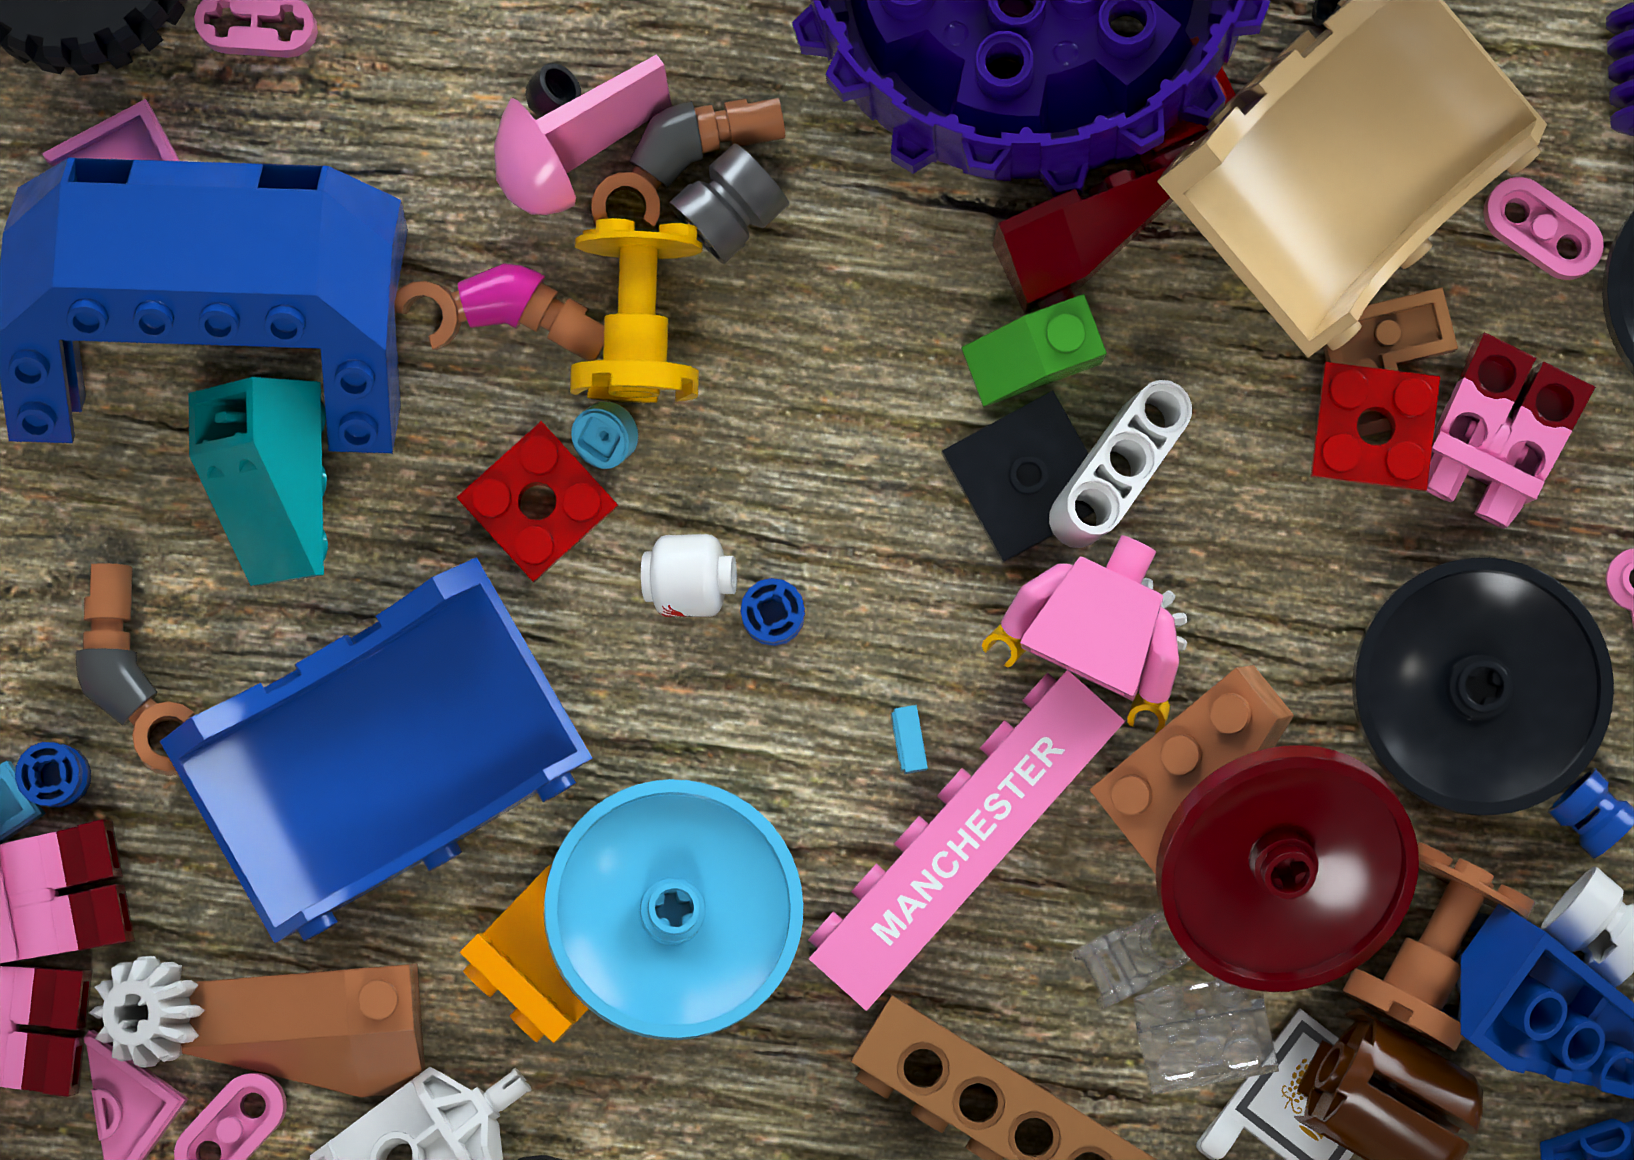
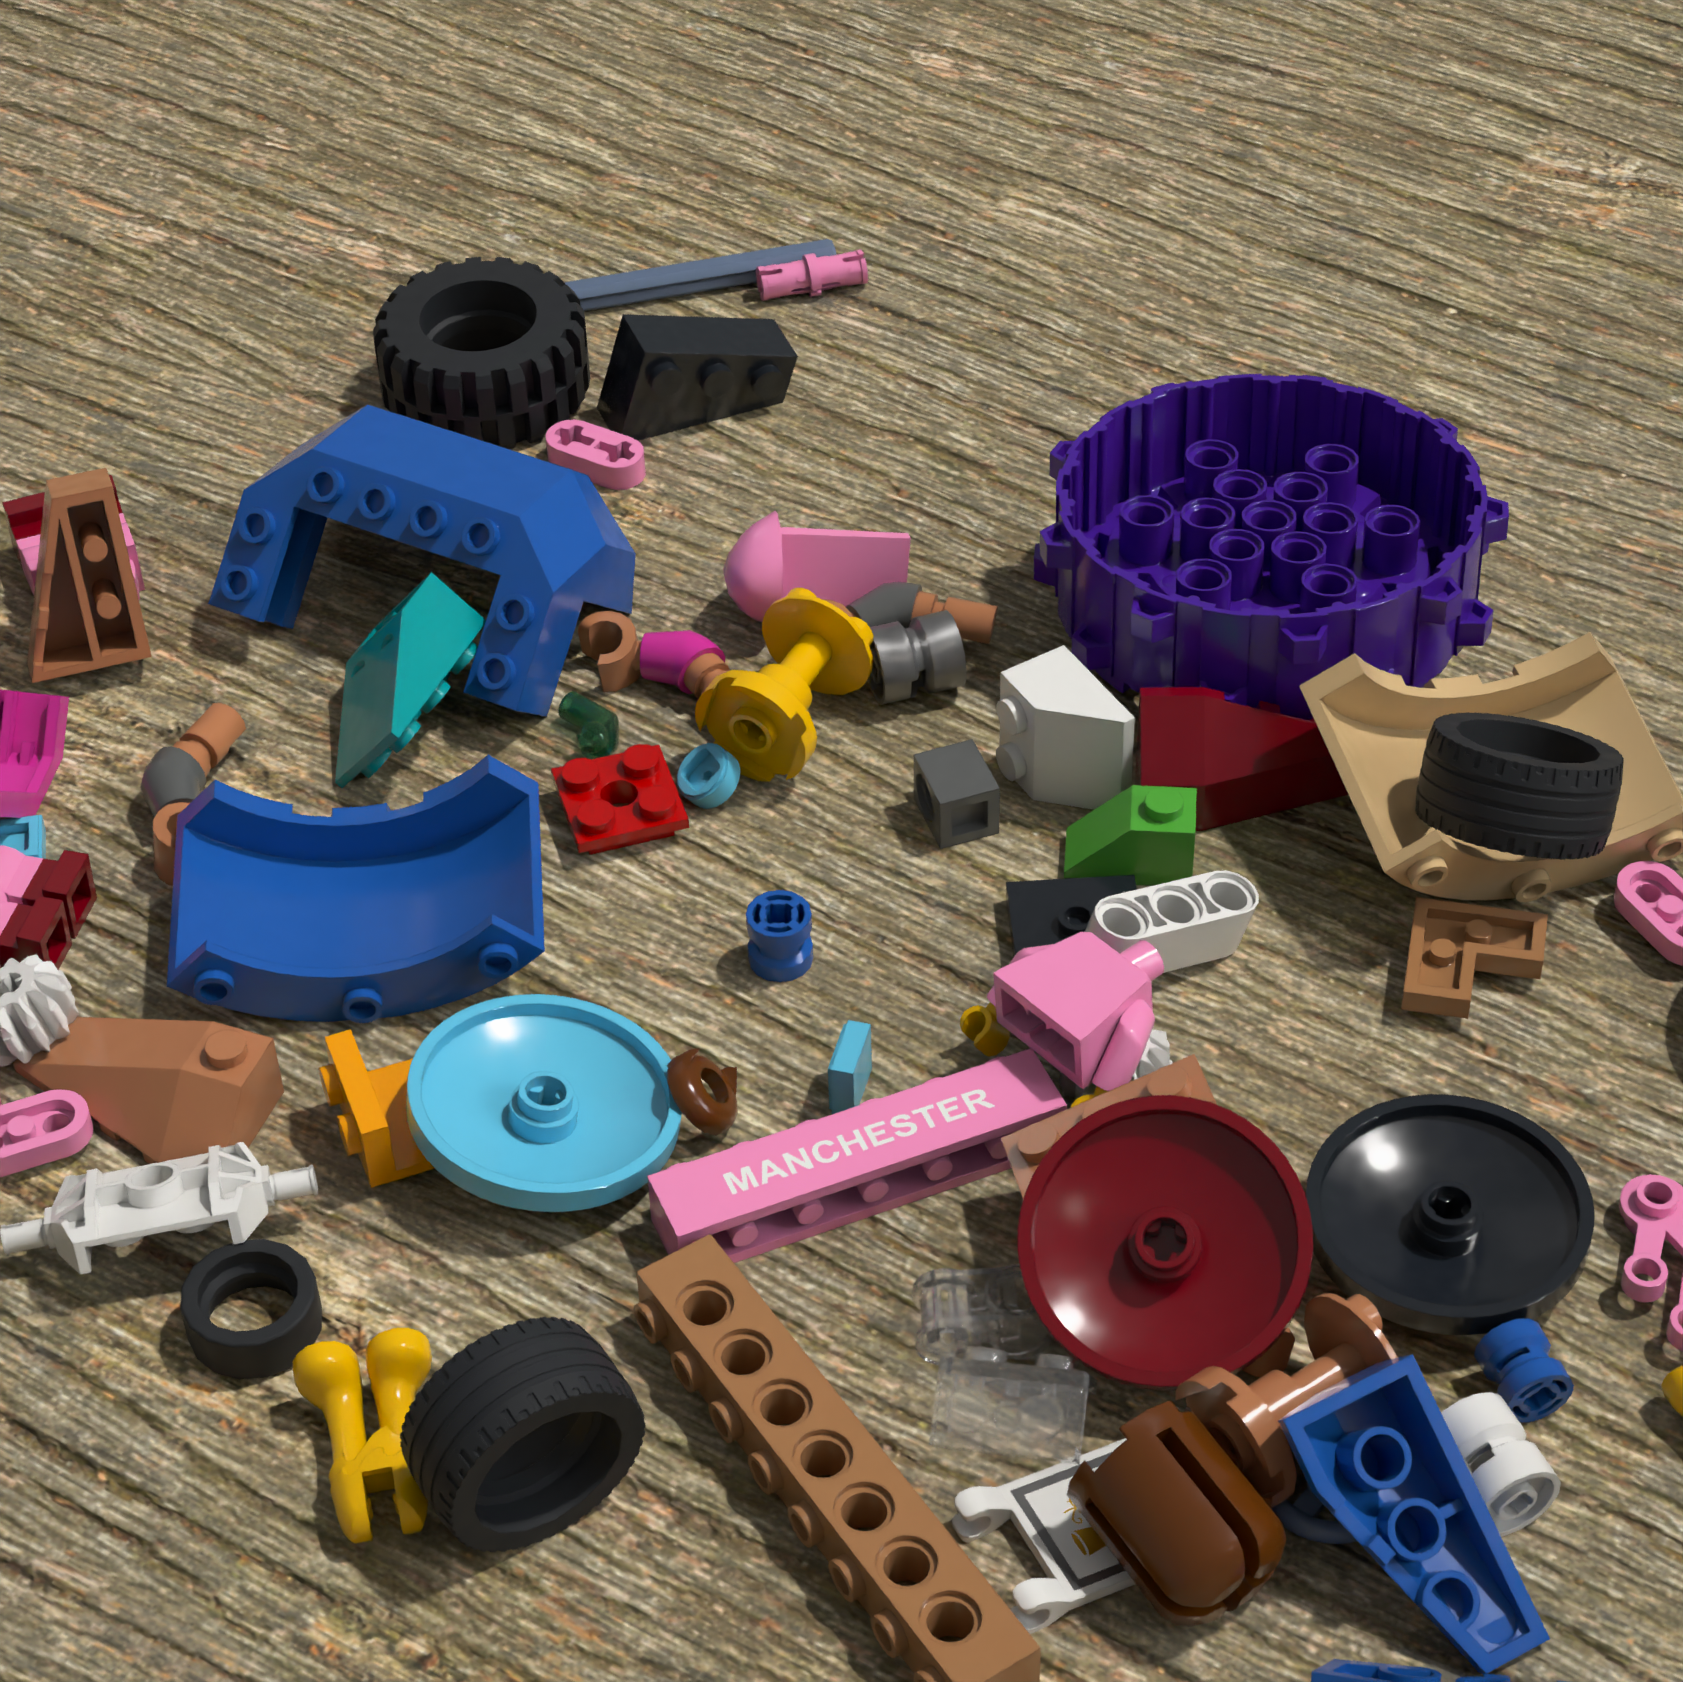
camera: 25 degrees right, 40 degrees down
(63, 781) = (71, 822): blue wheel -> none
(465, 412) = (597, 725): none -> clear green arm
(687, 575) = (716, 881): white head -> none
(783, 833) = (691, 1097): none -> reddish brown piece
(847, 360) = (956, 793): none -> dark grey brick
(926, 264) = (1063, 732): none -> white slope
(1404, 142) = (1519, 785): none -> black tyre
(1406, 402) = (1424, 948): red piece -> none
(1501, 451) = (1561, 1038): bright pink hips -> none

